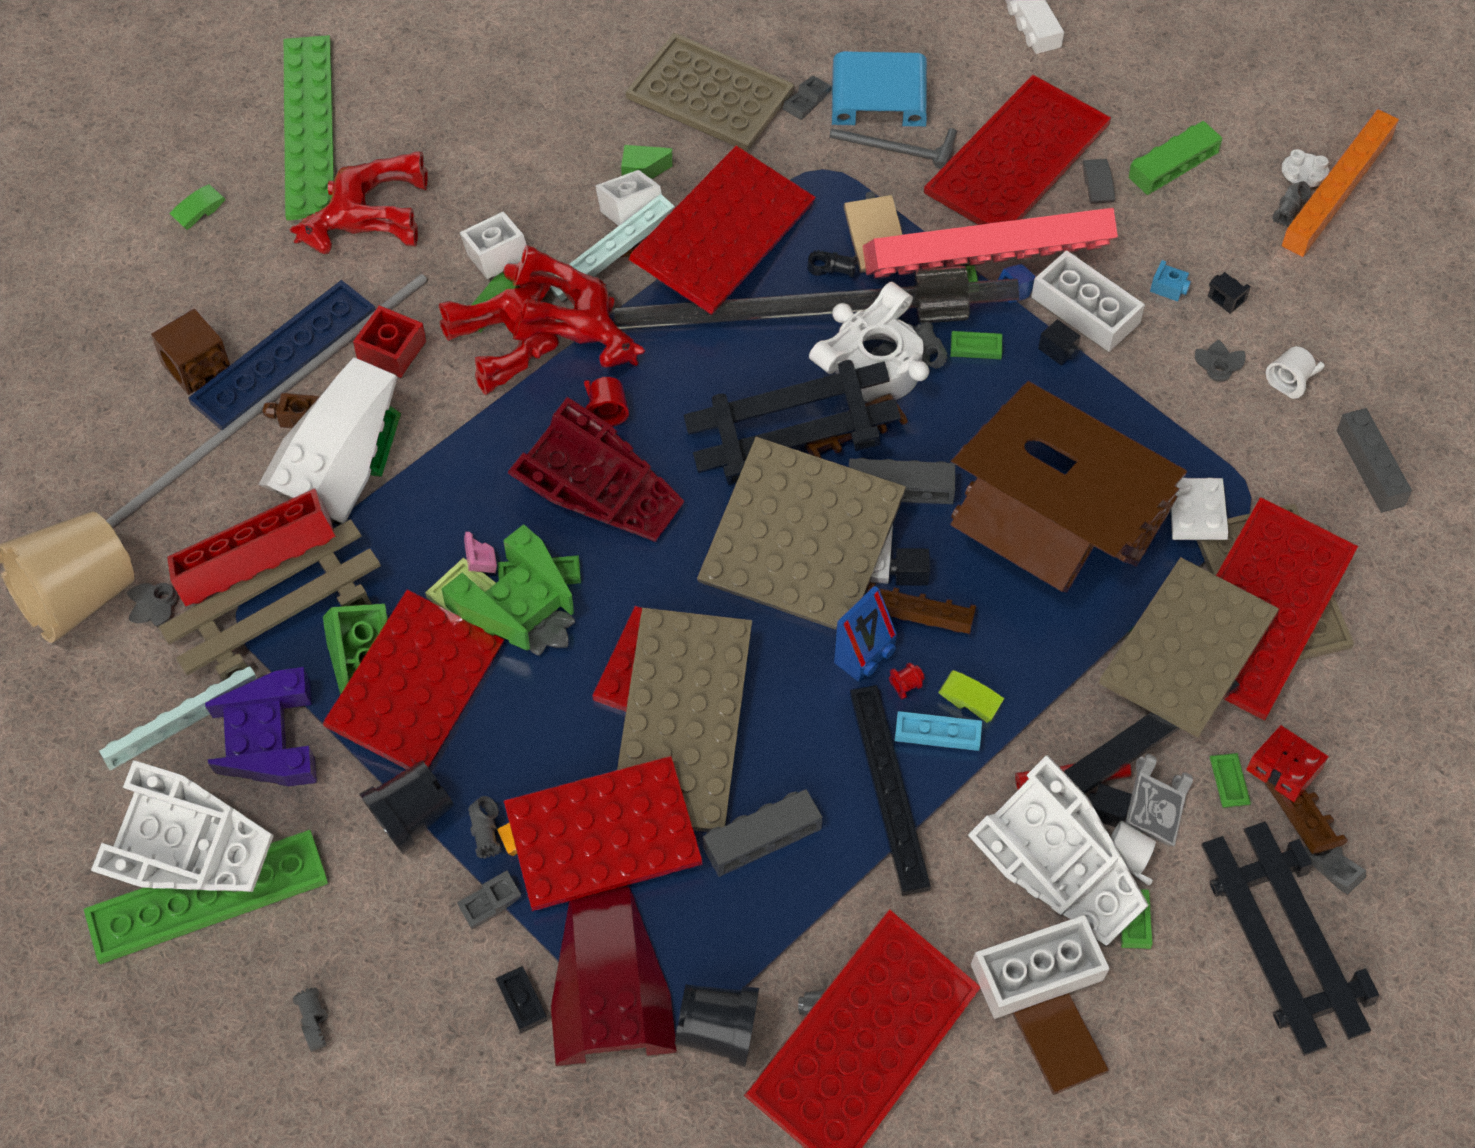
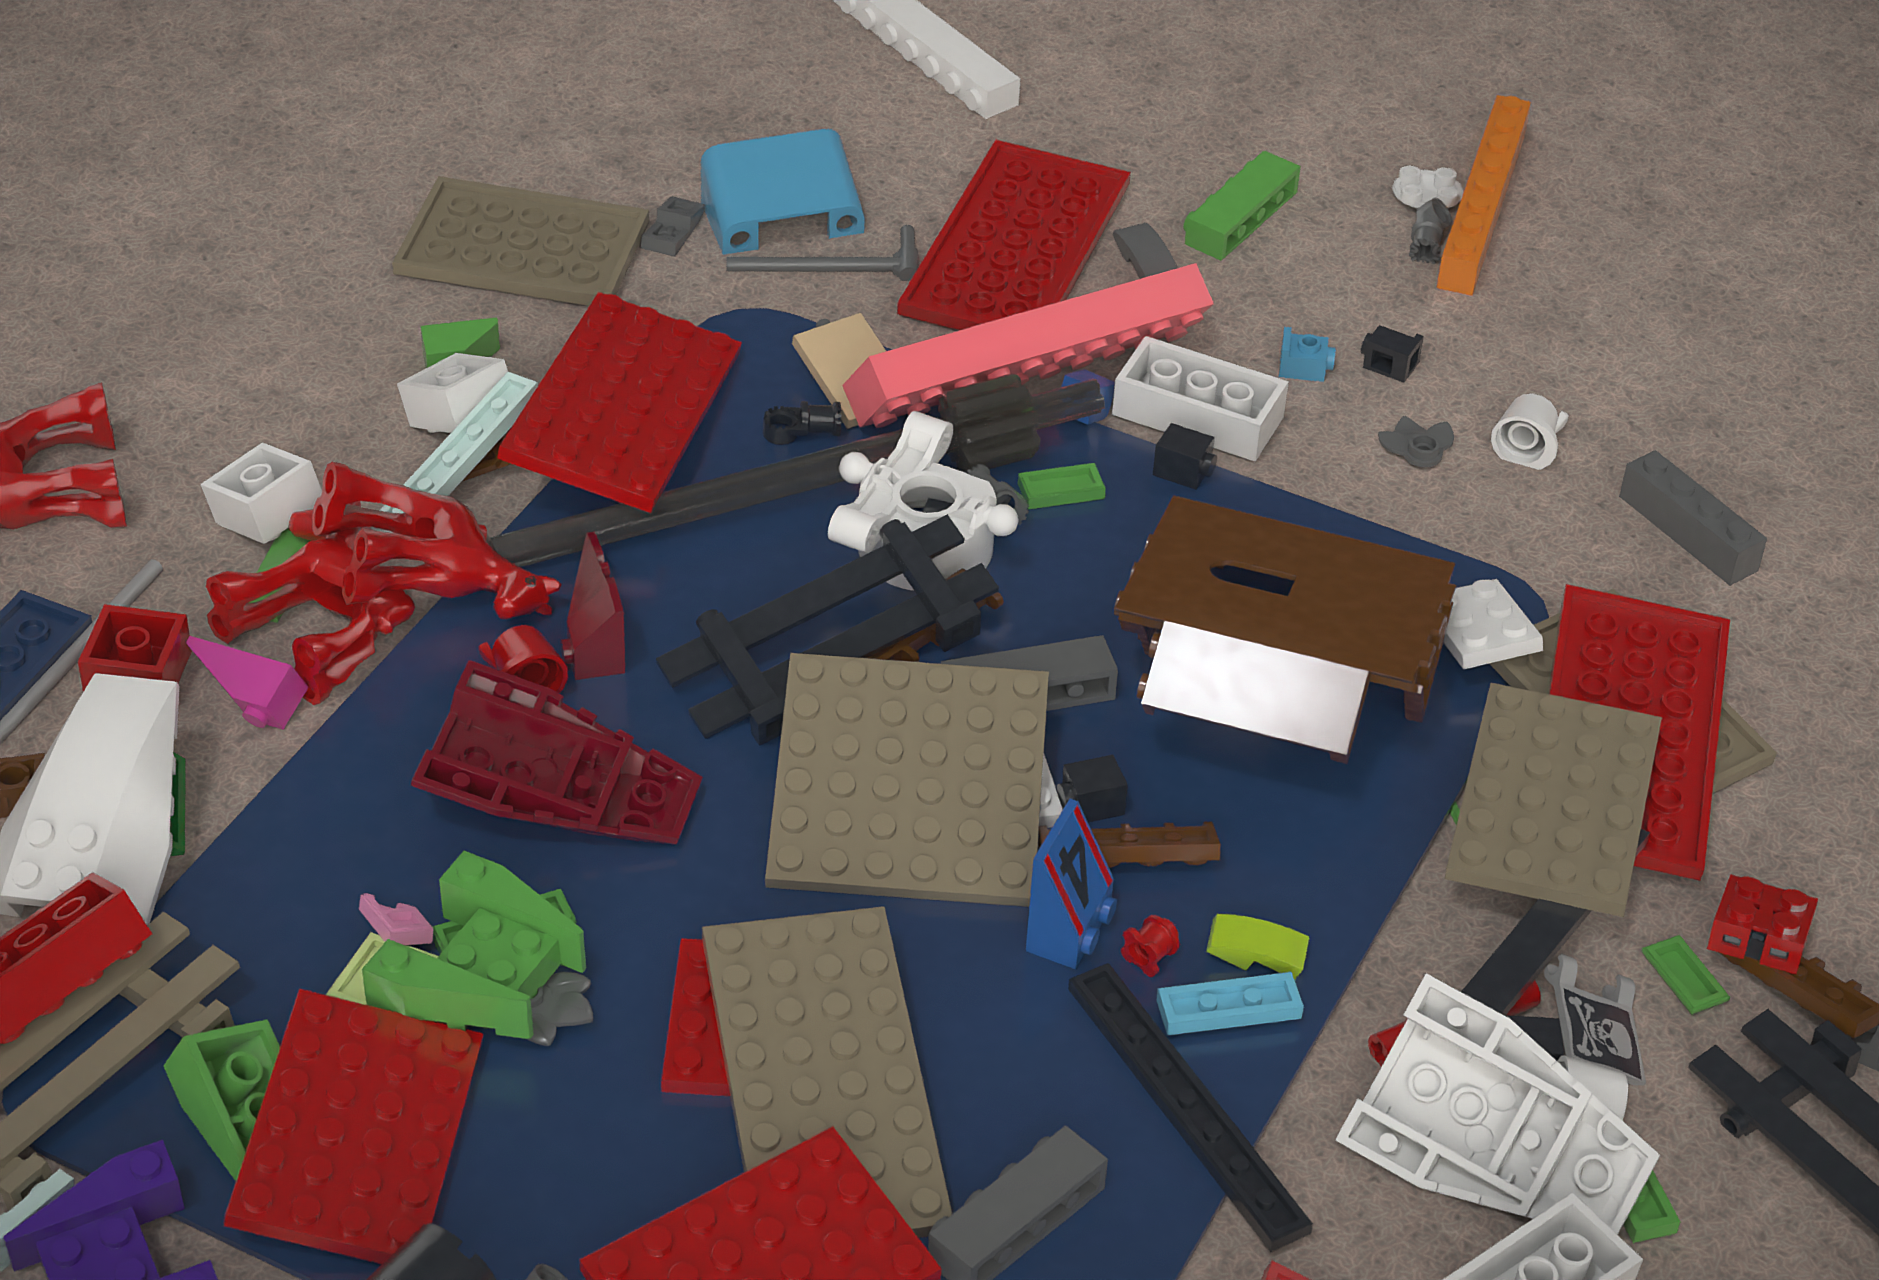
camera: 20 degrees left, 15 degrees down
(452, 378) = (260, 686): none -> dark pink slope
(655, 379) = (594, 619): none -> dark red wedge

